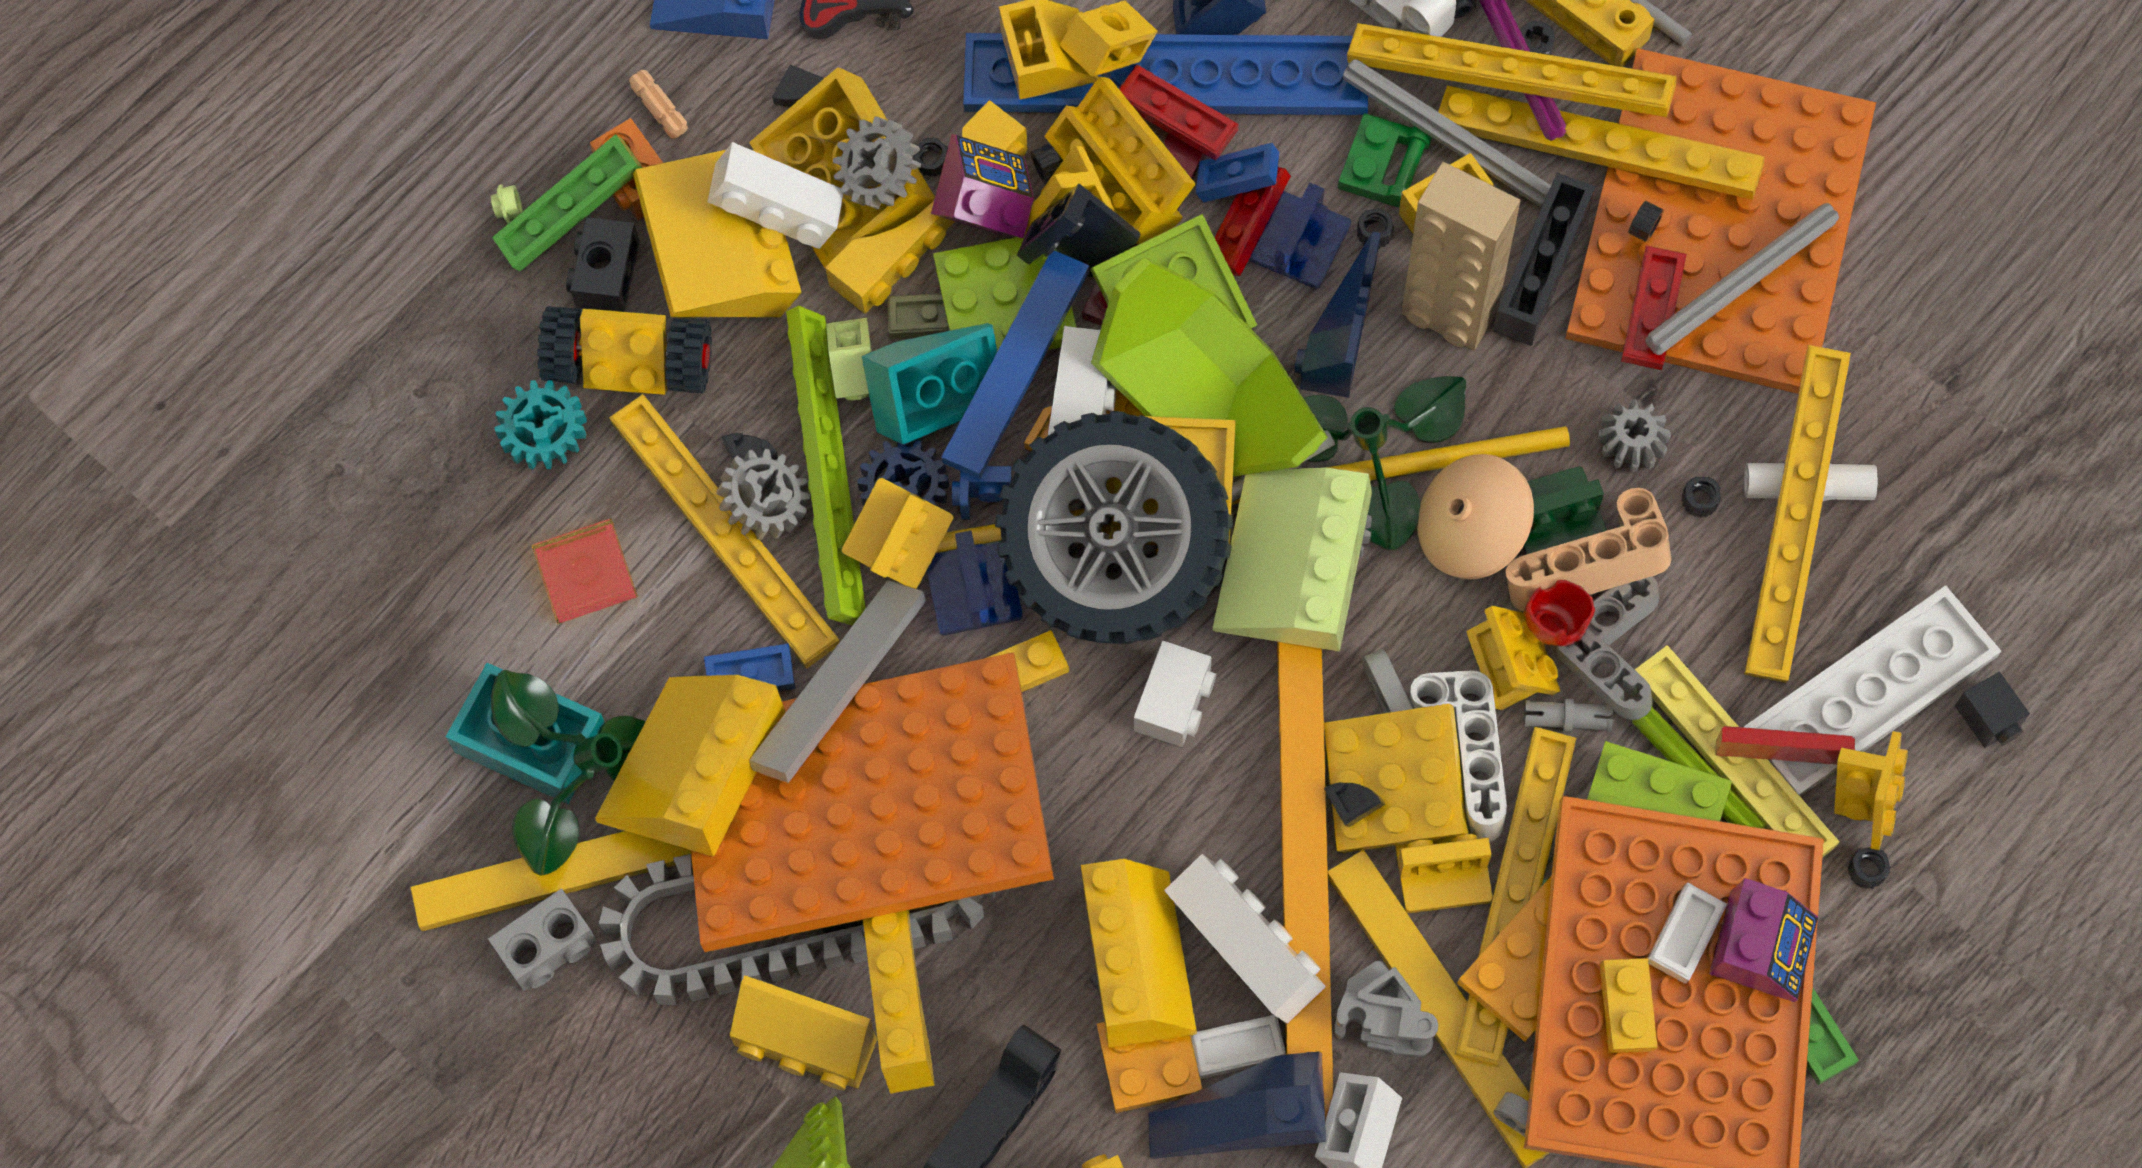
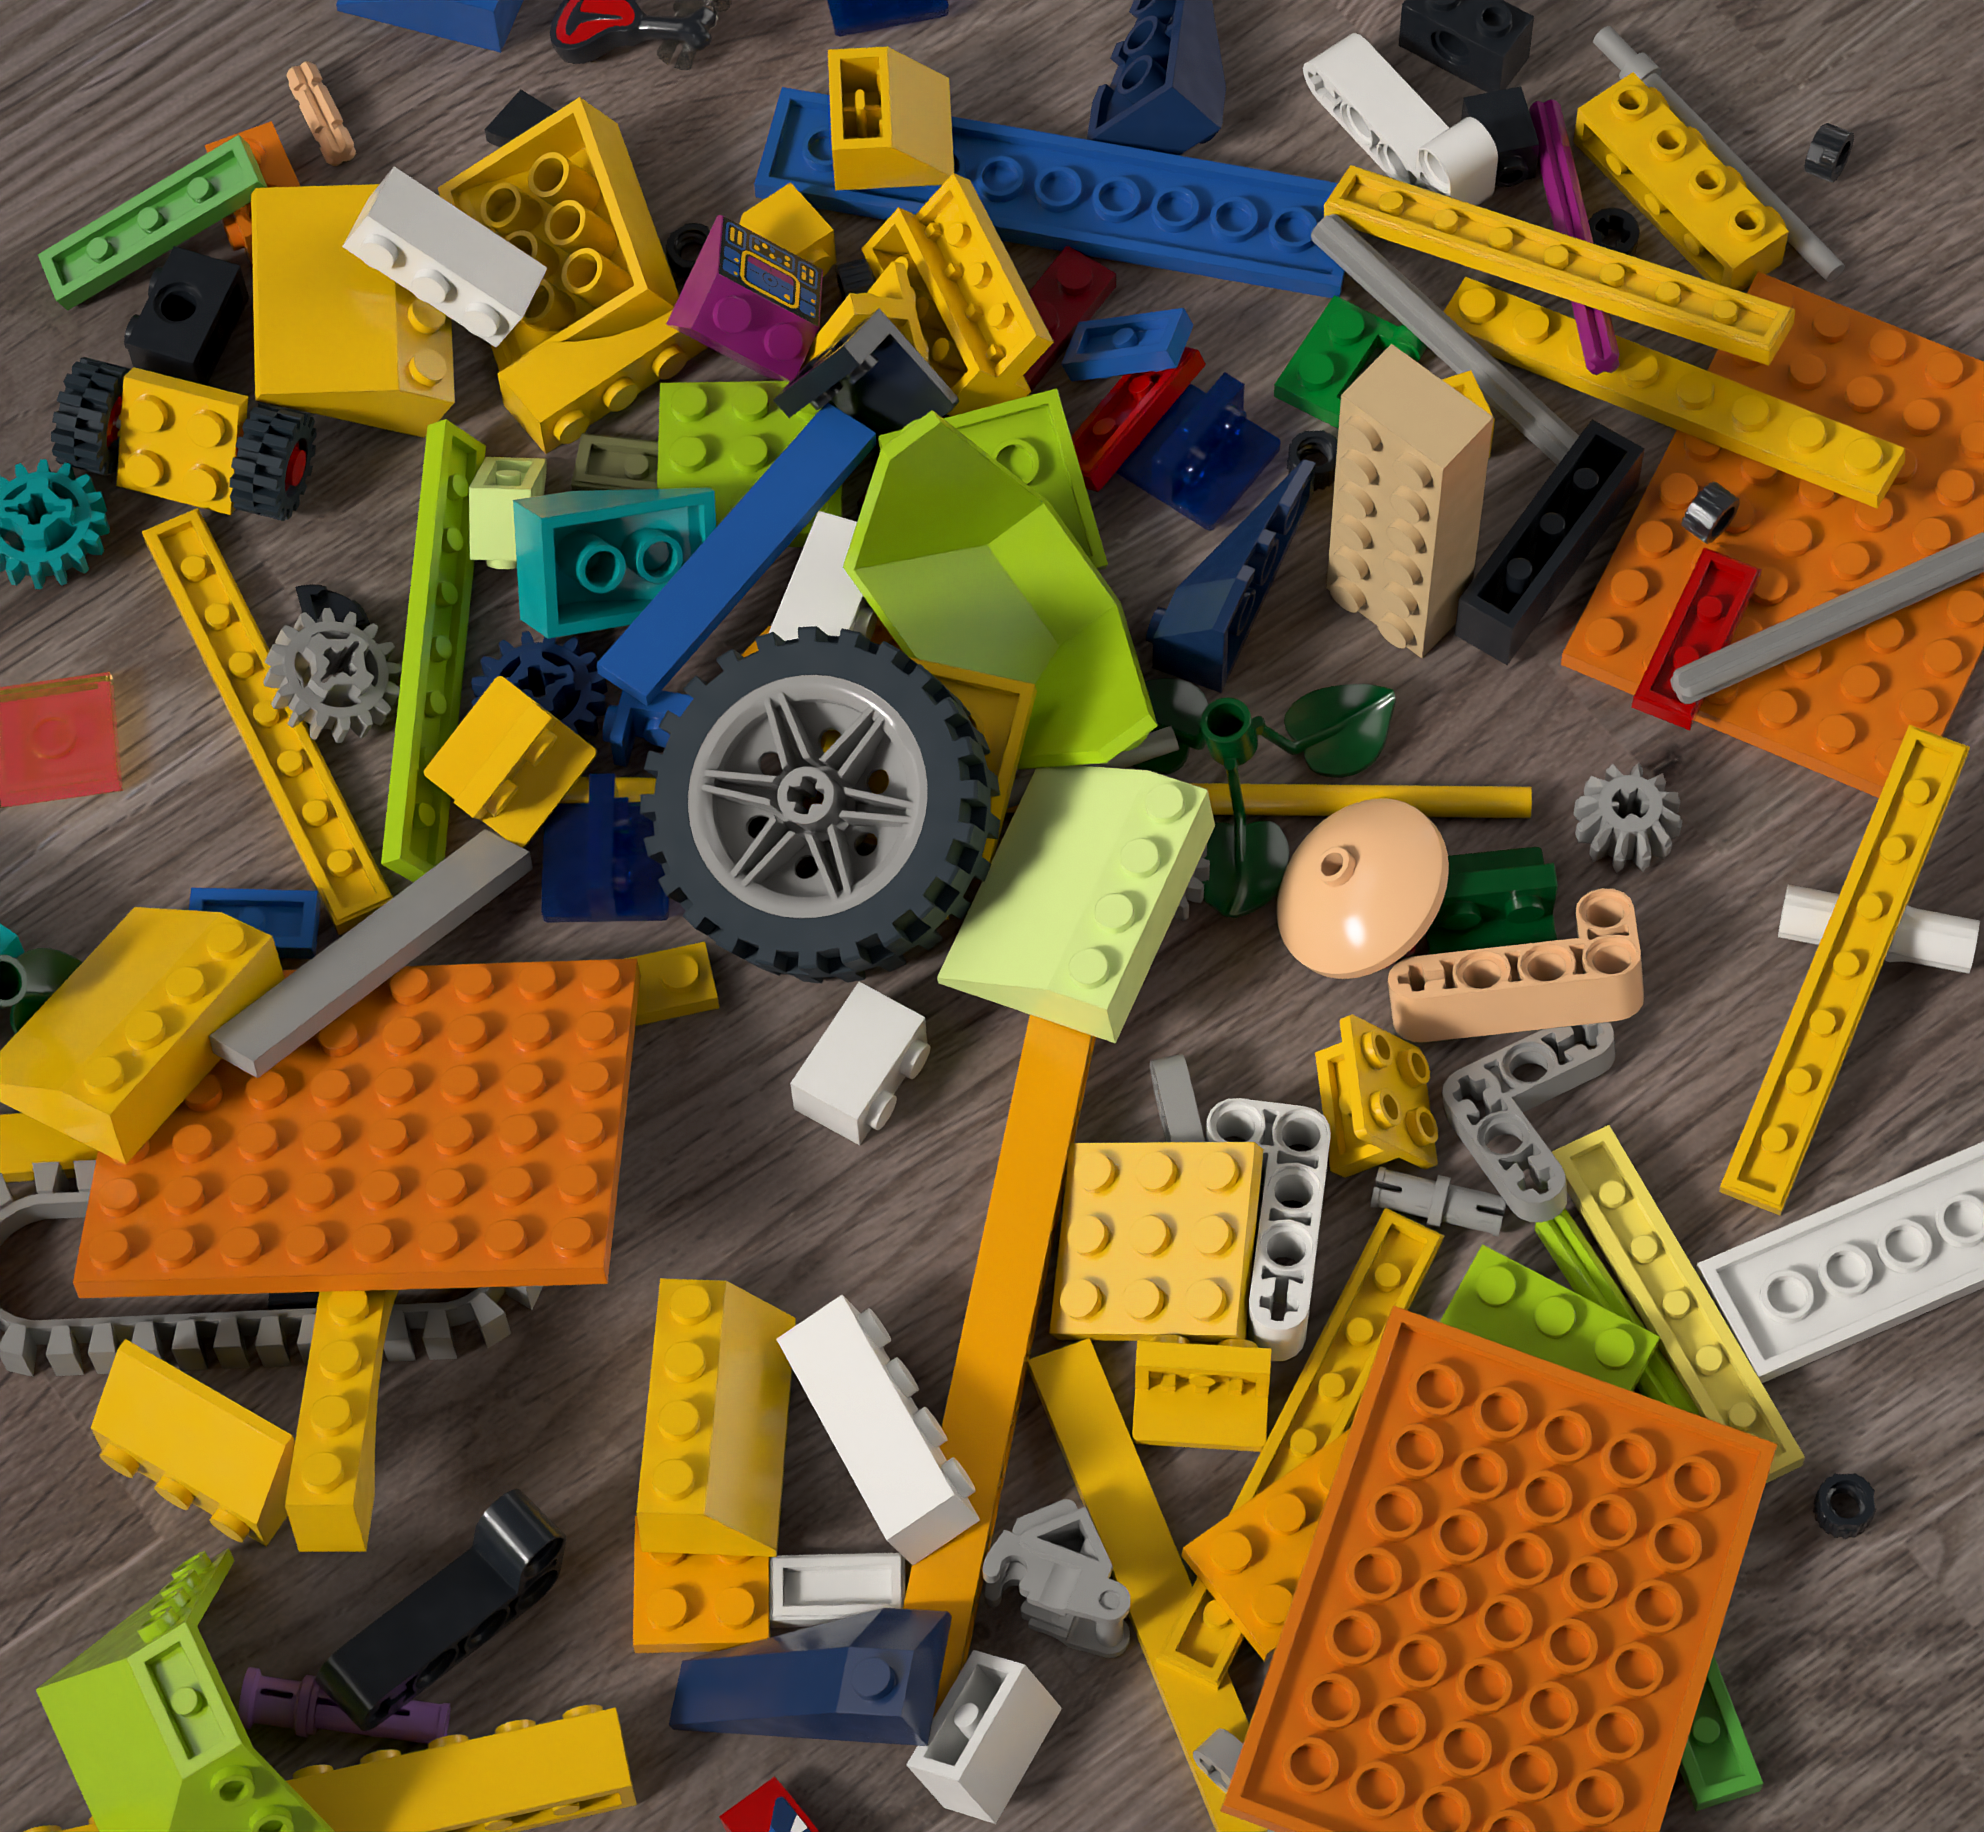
camera: 10 degrees right, 5 degrees down
(506, 203) = (70, 209): yellowish green plate -> none
(876, 162) = (600, 230): light grey gear -> none
(1107, 38) = (977, 121): yellow brick -> none
(1178, 112) = (1060, 247): red tile -> none
(1353, 801) = (1085, 1262): black tile -> none
(1559, 613) = (1453, 1047): red hair -> none
(1628, 1005) = (1422, 1629): yellow plate -> none
(1686, 933) = (1534, 1540): white tile -> none
(1706, 484) = (1720, 906): black axle -> none
(1764, 940) = (1652, 1573): magenta slope -> none
(1782, 745) = (1749, 1298): red tile -> none
(1871, 786) = (1868, 1382): yellow bracket -> none

